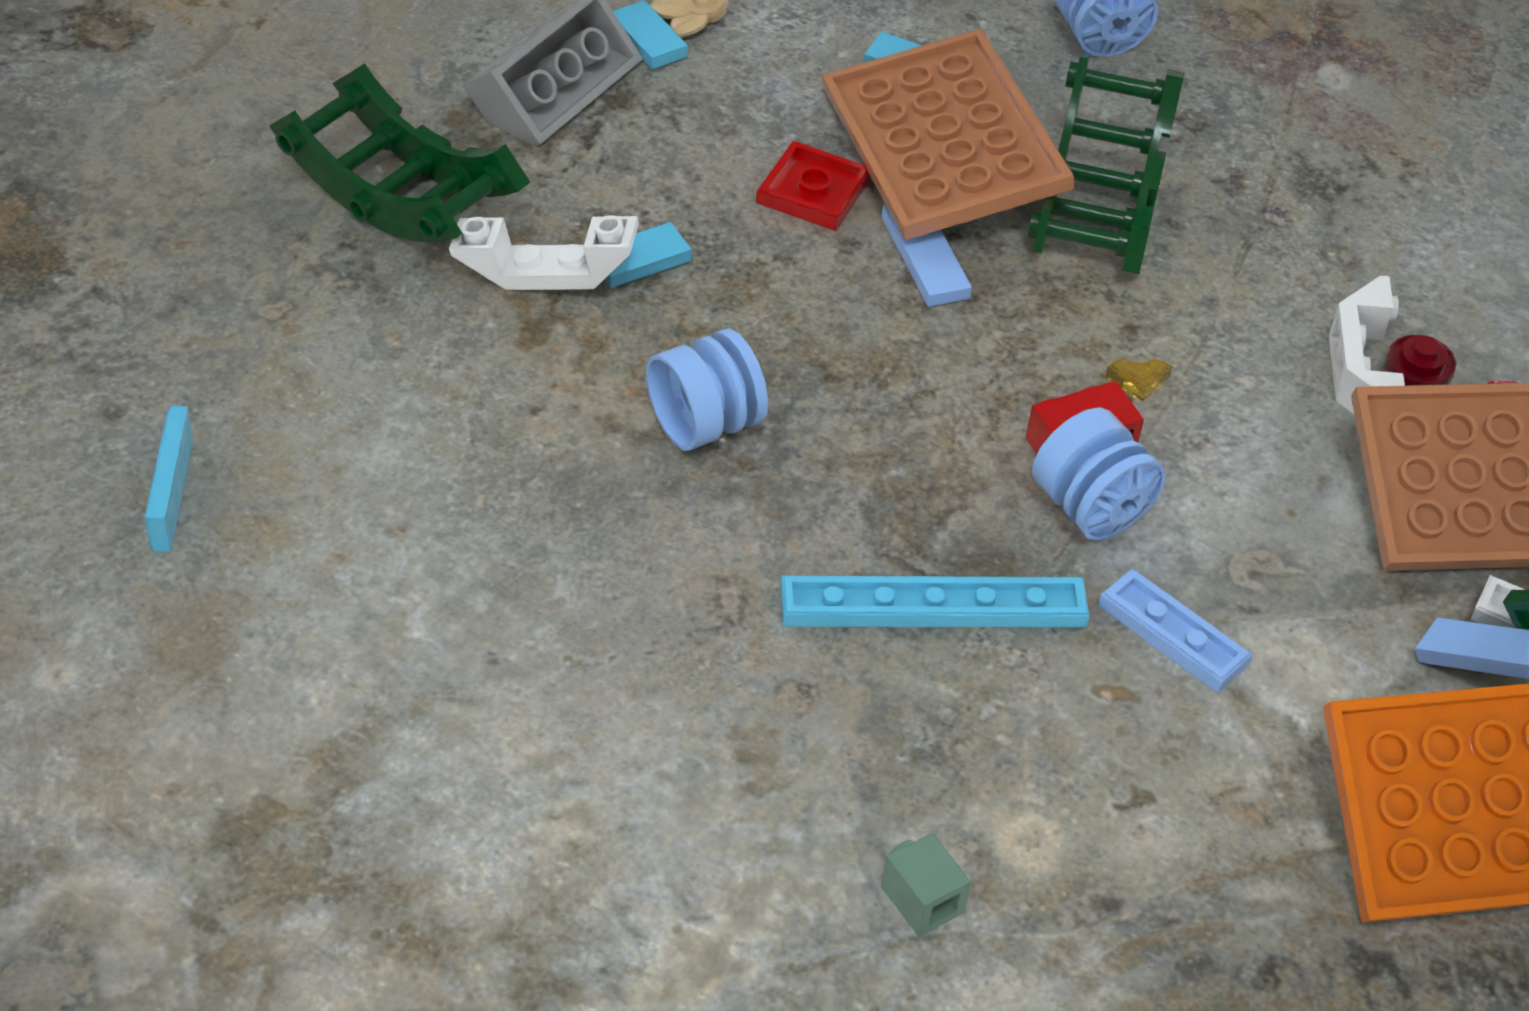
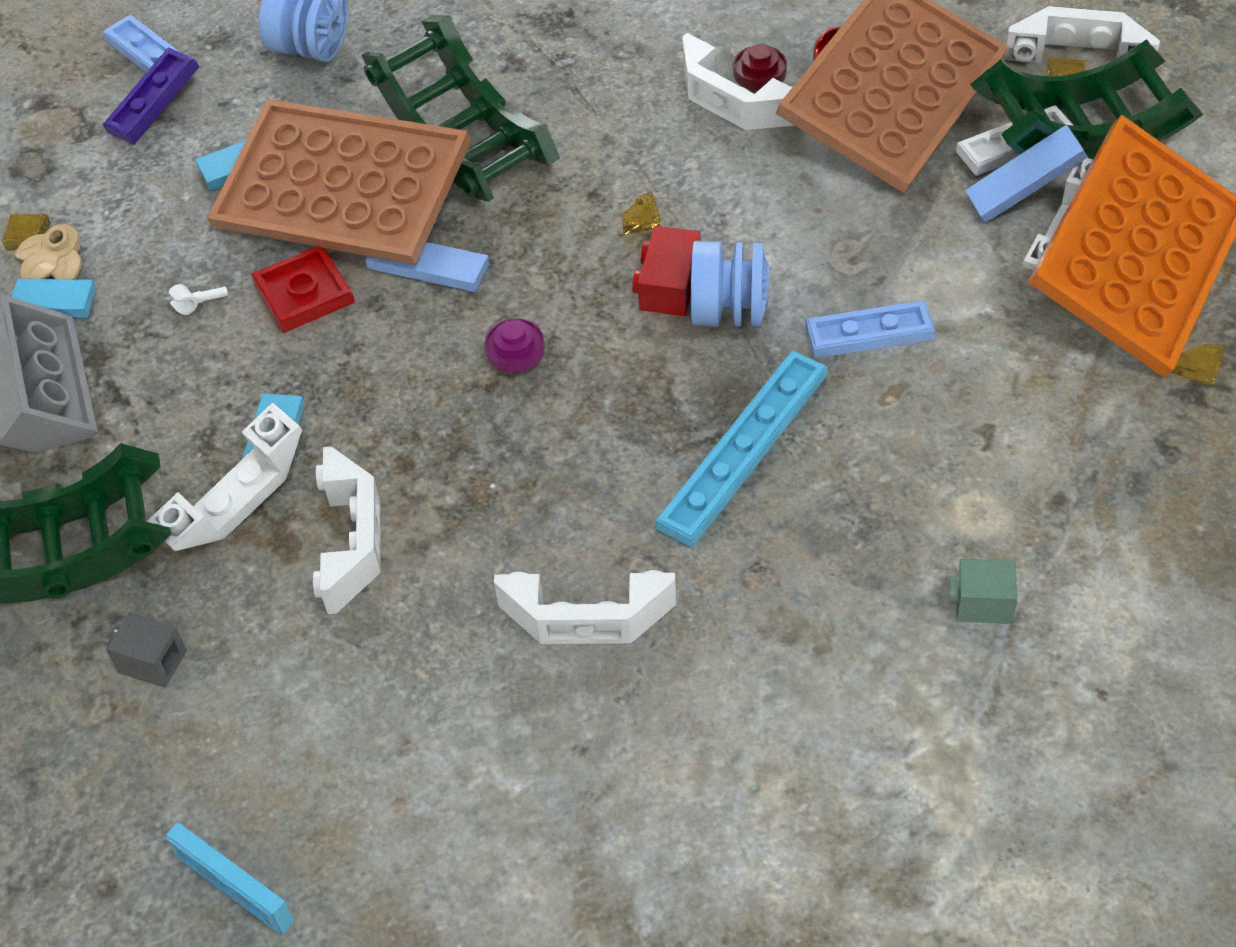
camera: 45 degrees left, 5 degrees up
(344, 298) = (146, 649): none -> dark grey brick
(528, 385) = (350, 571): none -> white slope
(675, 614) = (601, 623): none -> white slope
(706, 389) = (462, 461): light blue wheel -> none
(725, 117) = (186, 302): none -> white hand
(885, 363) = (514, 345): none -> magenta plate
(1412, 947) = (1200, 363): none -> clear yellow tile

